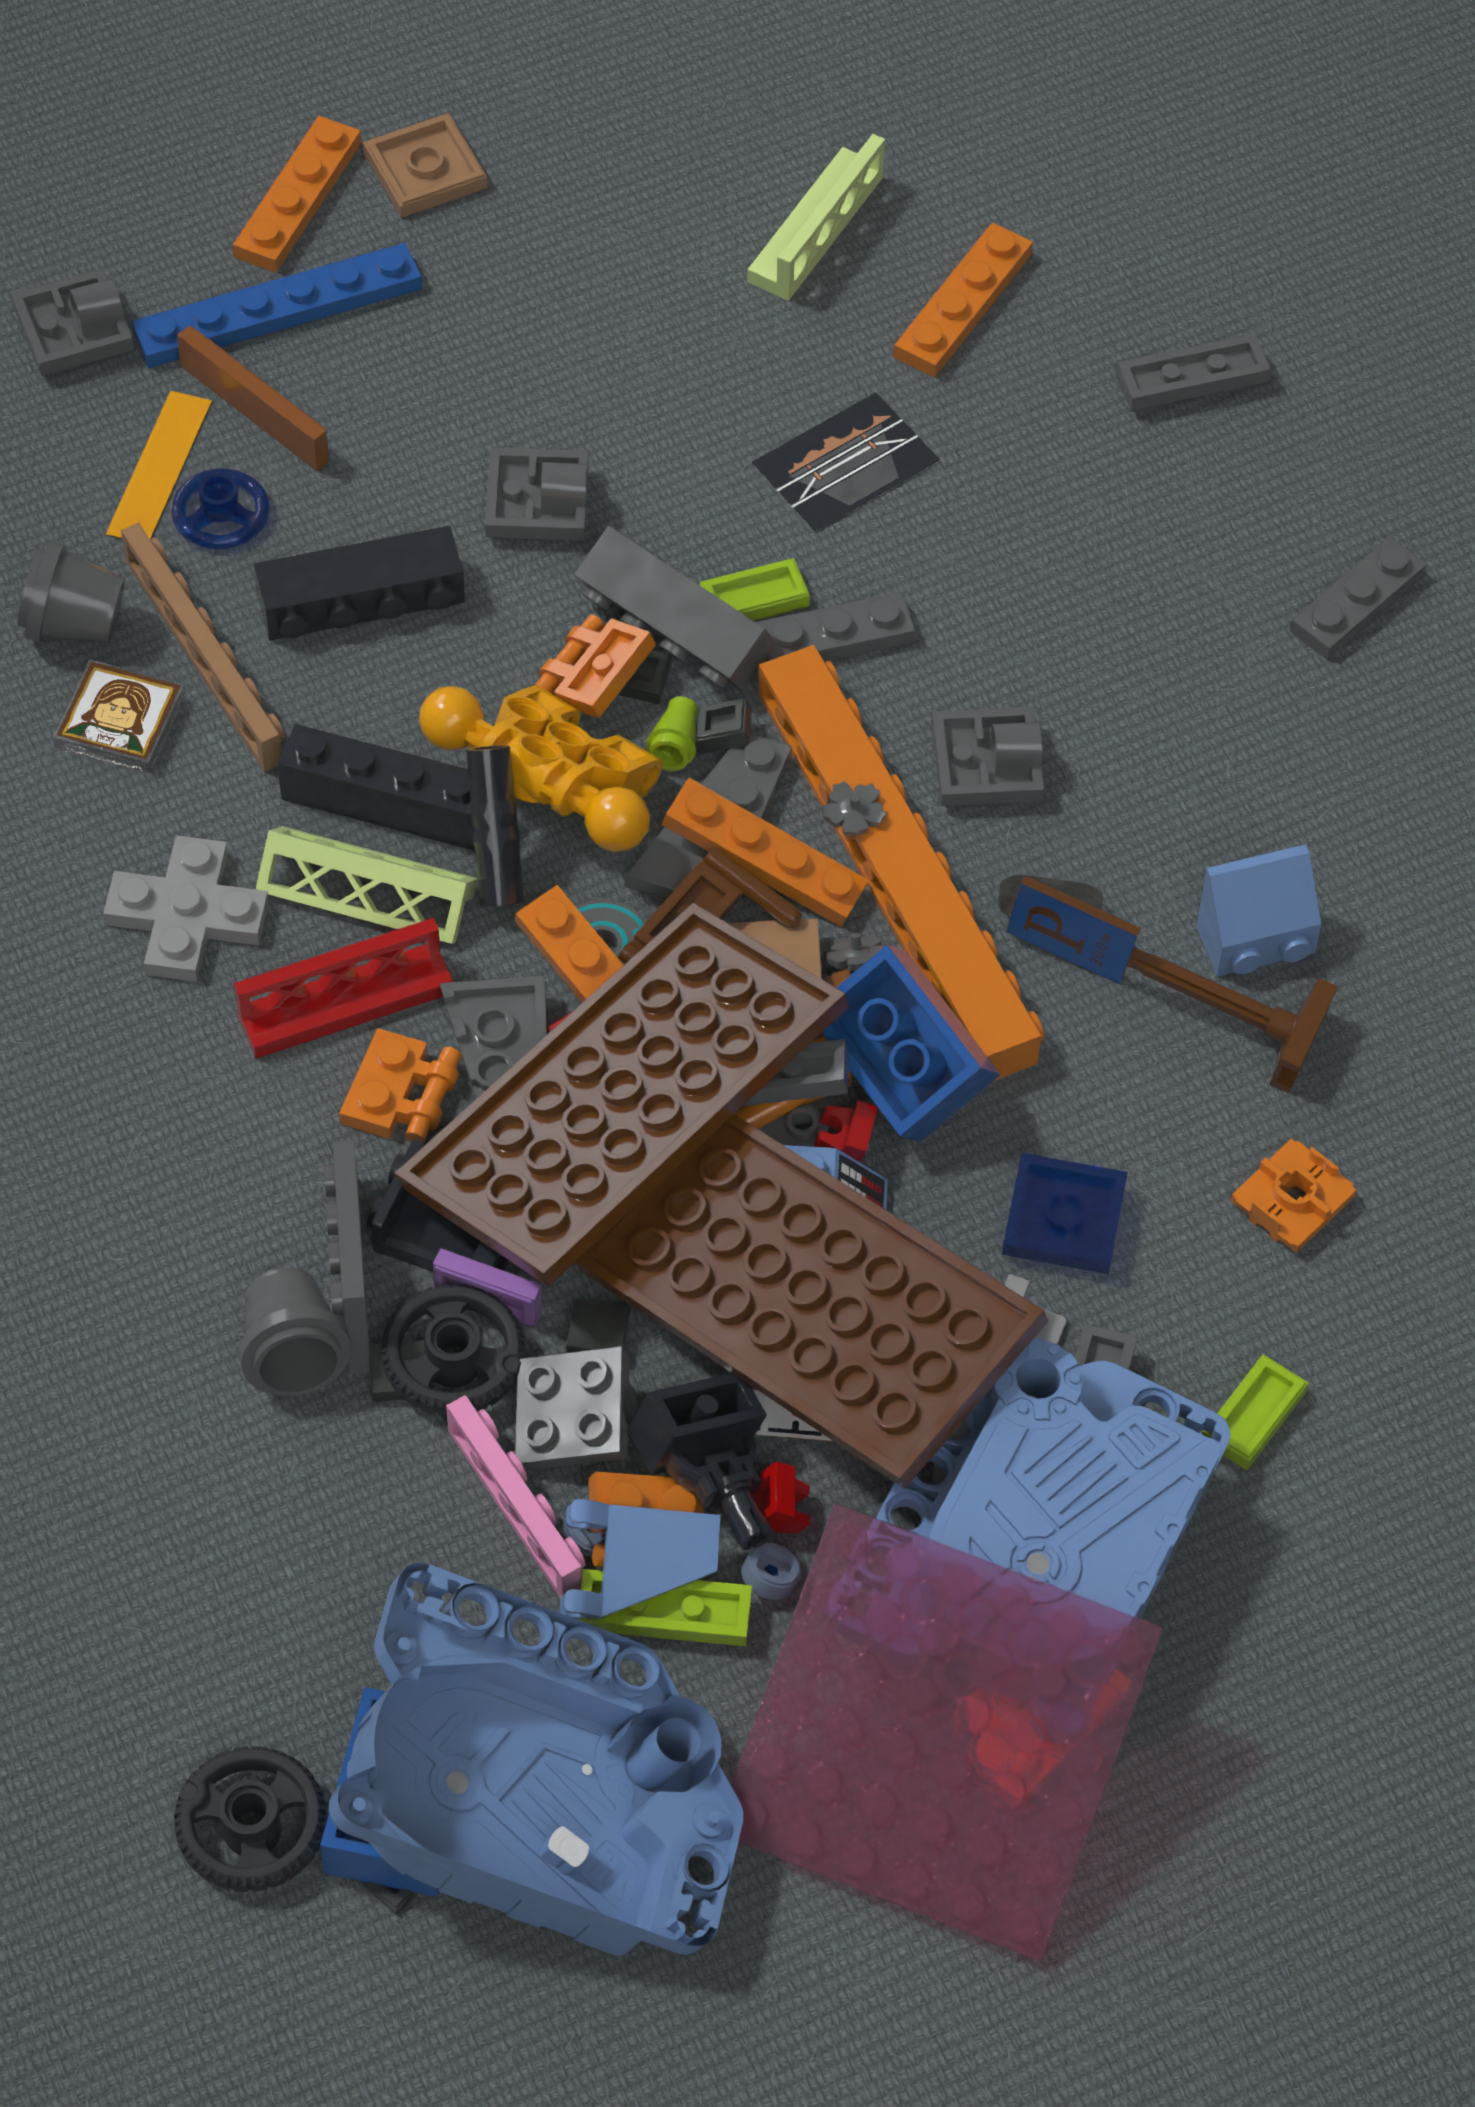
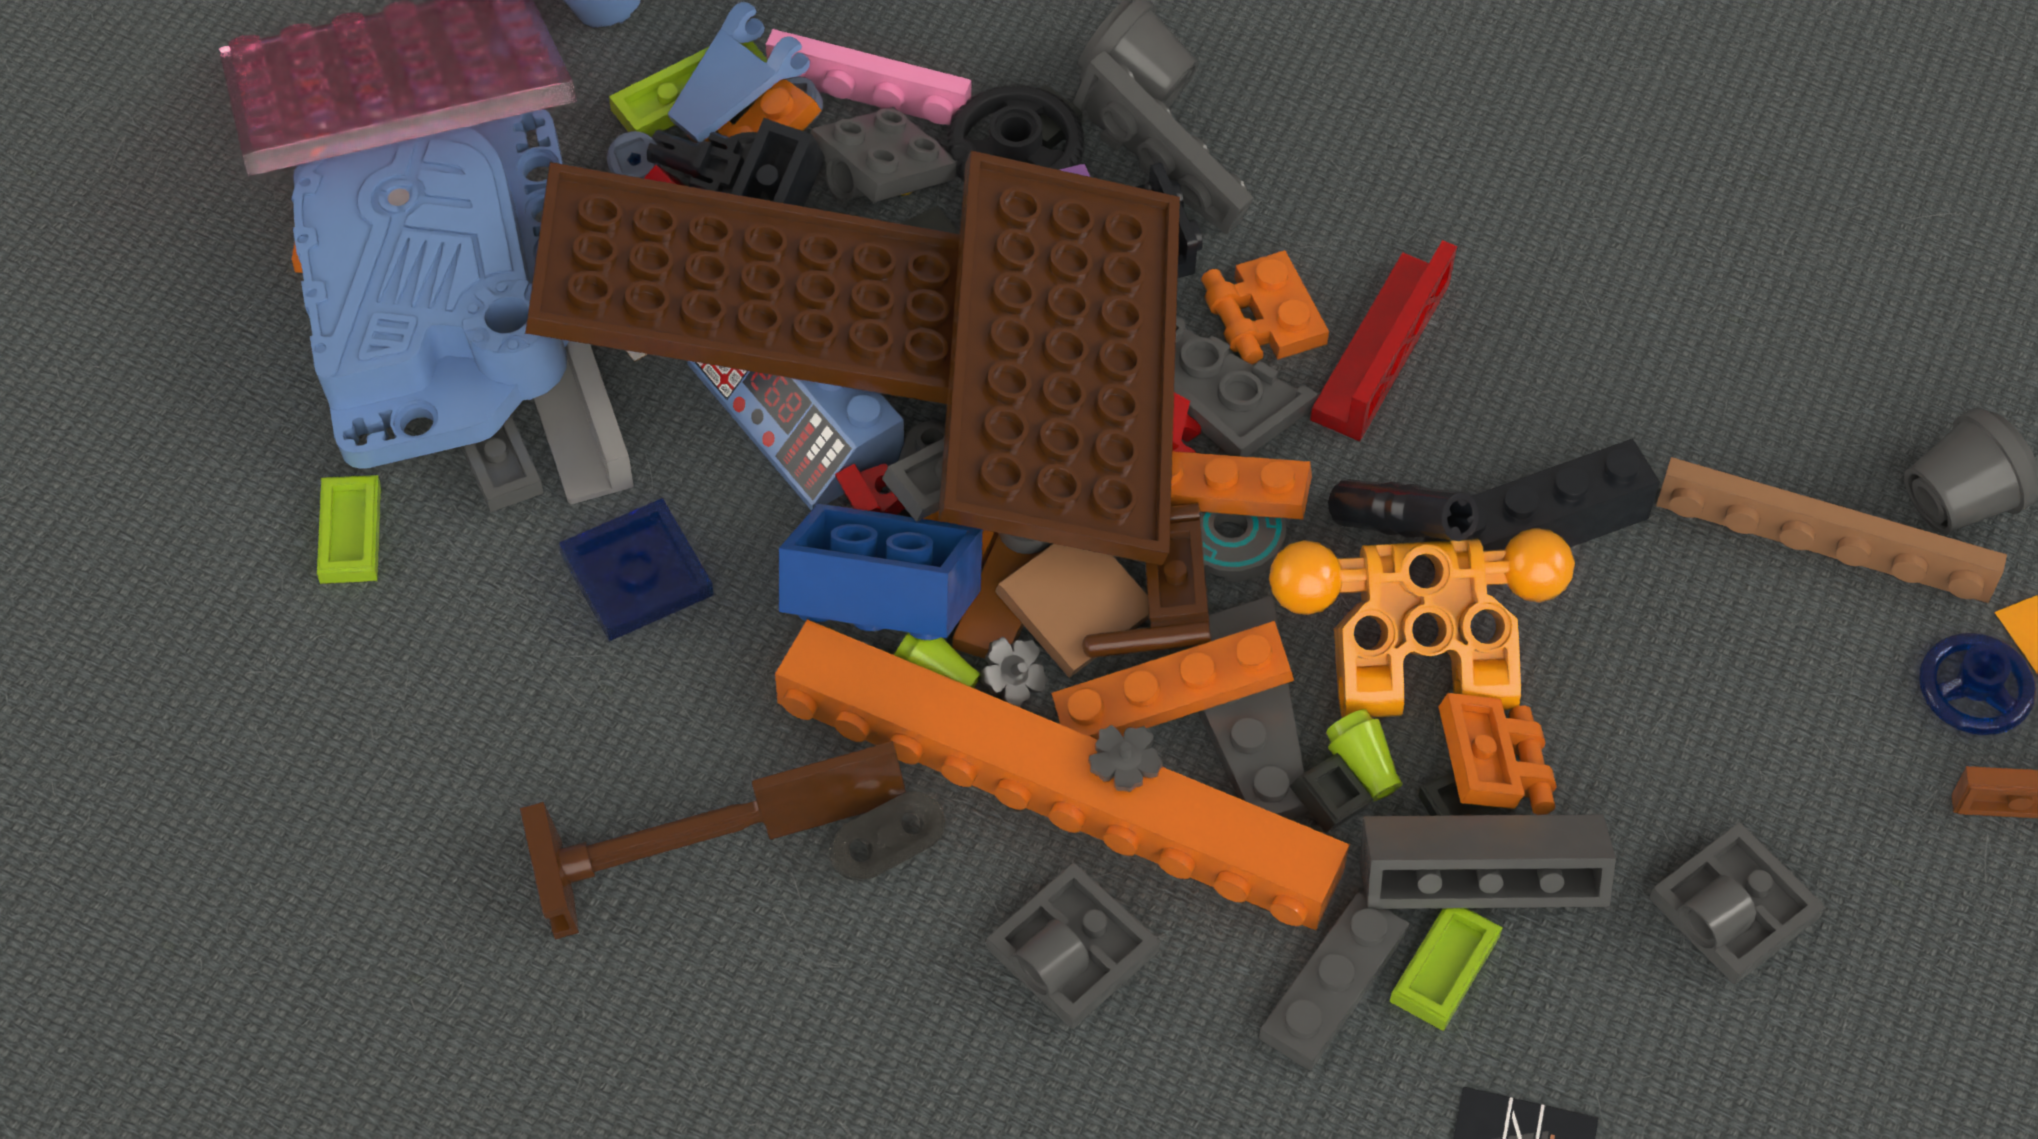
camera: 140 degrees right, 0 degrees up
(119, 716) = (1821, 438): tile -> none
(186, 908) = (1582, 328): light grey plate -> none
(359, 583) = (1774, 686): black brick -> none
(369, 864) = (1478, 438): yellowish green fence -> none
(1259, 911) = (677, 946): medium blue slope -> none
(1287, 1219) = (460, 753): orange piece -> none

